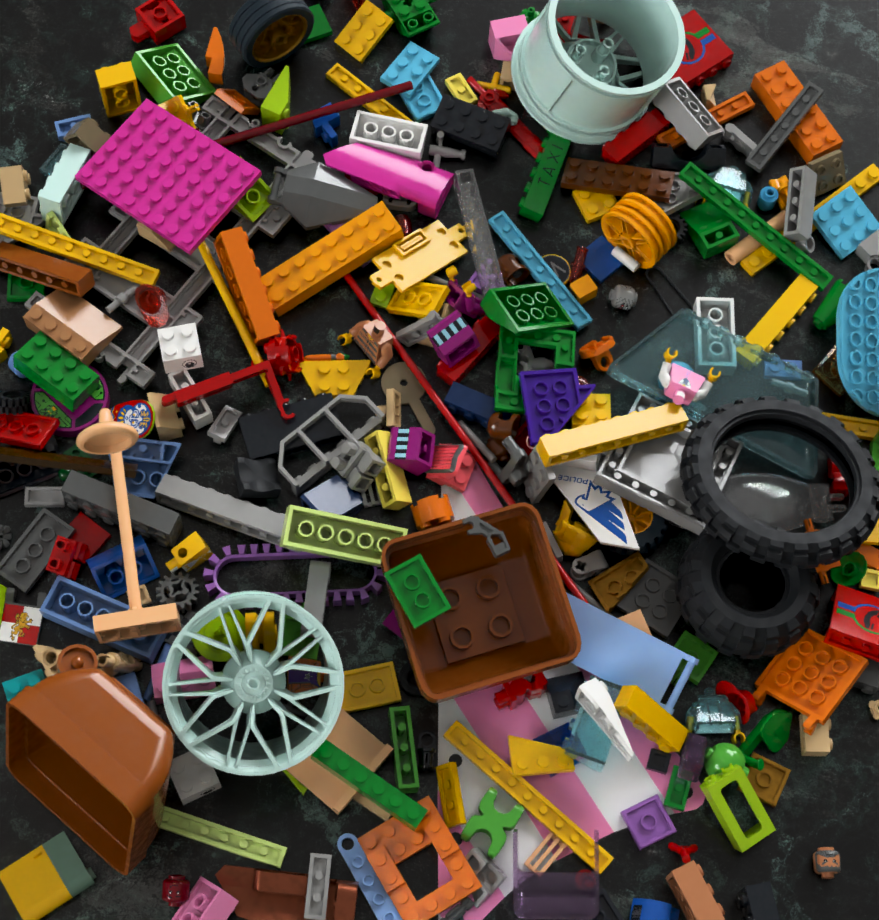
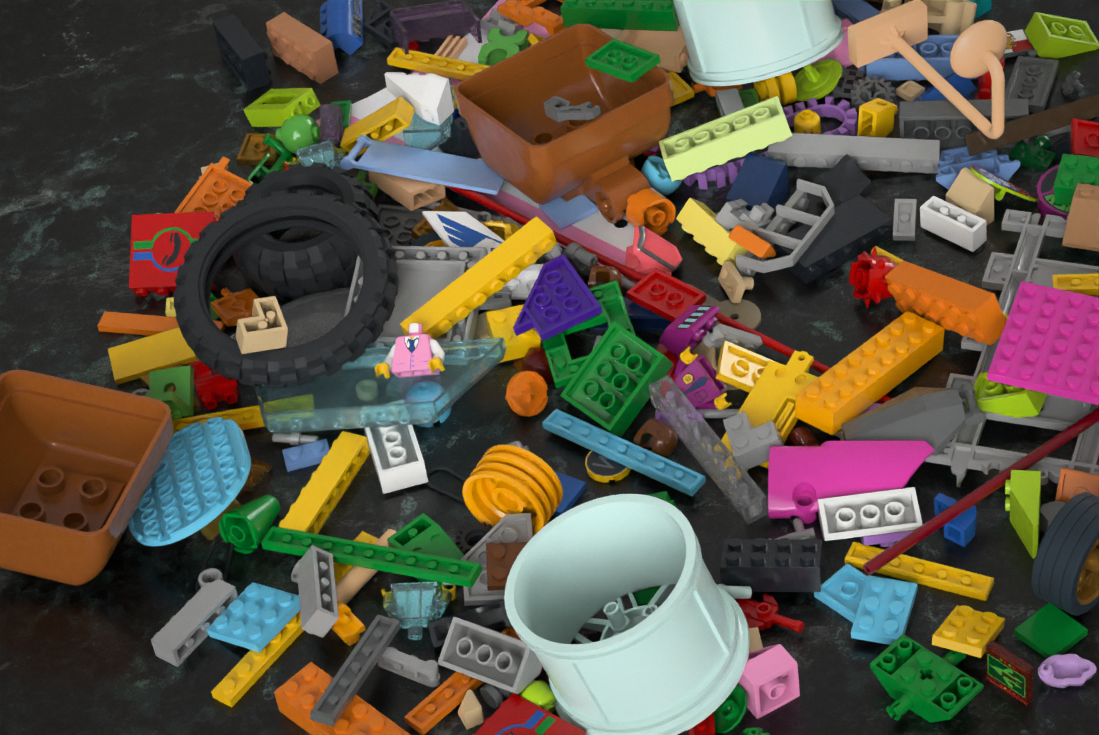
camera: 175 degrees right, 25 degrees down
(121, 299) = (1080, 259): light grey bar -> none
(152, 304) = (1041, 264): clear red piece -> none
(180, 348) = (984, 233): white brick -> none
(224, 382) = (918, 218): red hinge -> none
(253, 576) = (807, 122): none -> yellow head
(326, 357) = (817, 315): orange piece -> none
(334, 376) = (813, 297): yellow wing -> none
(365, 422) = (752, 242): none -> orange slope
(374, 341) = (786, 325): nougat torso -> none
(411, 449) = (695, 247): magenta slope -> none
(445, 223) = (751, 444): none -> light grey brick
(456, 395) = (665, 295): none -> red plate
(460, 89) = (802, 609): light yellow plate -> none
(494, 84) = (768, 634): yellow piece -> none
(578, 264) = (578, 469): clear red pin -> none
(584, 289) = (559, 449): light orange panel -> none
(648, 822) = (363, 93): medium lavender tile -> none
(684, 851) = (324, 78): red piece -> none
(767, 198) = (362, 607): dark azure brick -> none
(808, 417) = (264, 329): none -> tan brick
(826, 862) = (192, 113): head -> none
(829, 171) = (299, 649): dark tan plate -> none

